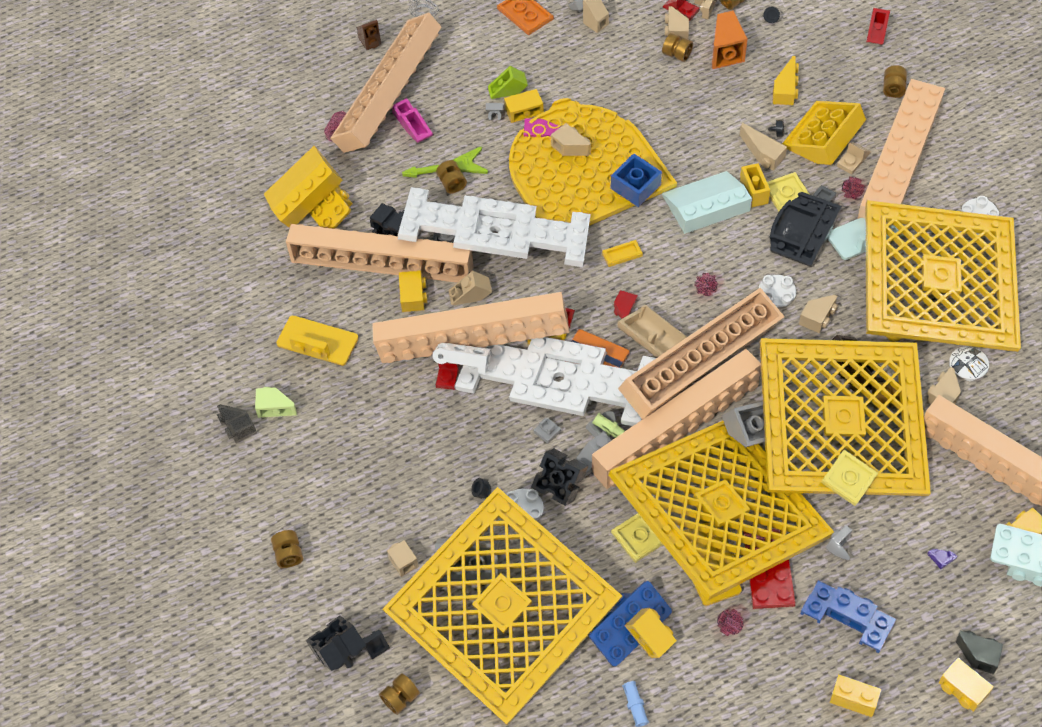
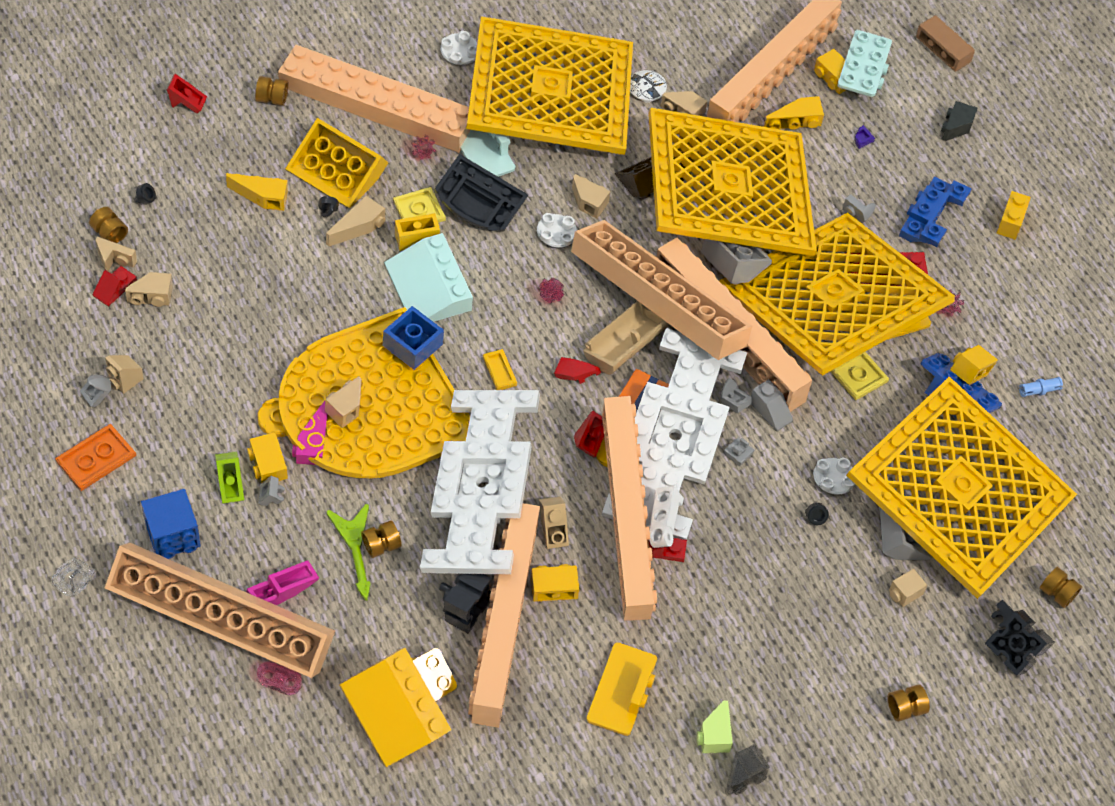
camera: 100 degrees left, 0 degrees up
(369, 34) = (119, 637): reddish brown slope -> none
(459, 50) = (171, 524): none -> blue brick
(559, 476) = (808, 432): black brick -> none
(608, 426) = (743, 385): yellowish green pin -> none
(676, 46) = (190, 290): pearl gold wheel -> none
(729, 41) = (191, 236): orange slope -> none
(825, 193) = (430, 175): dark grey plate -> none
(849, 477) = (797, 186): light yellow tile -> none
(853, 158) = (372, 139): tan slope -> none
(959, 495) = (797, 114): none -> yellow slope
(965, 685) = (992, 136): brick -> none

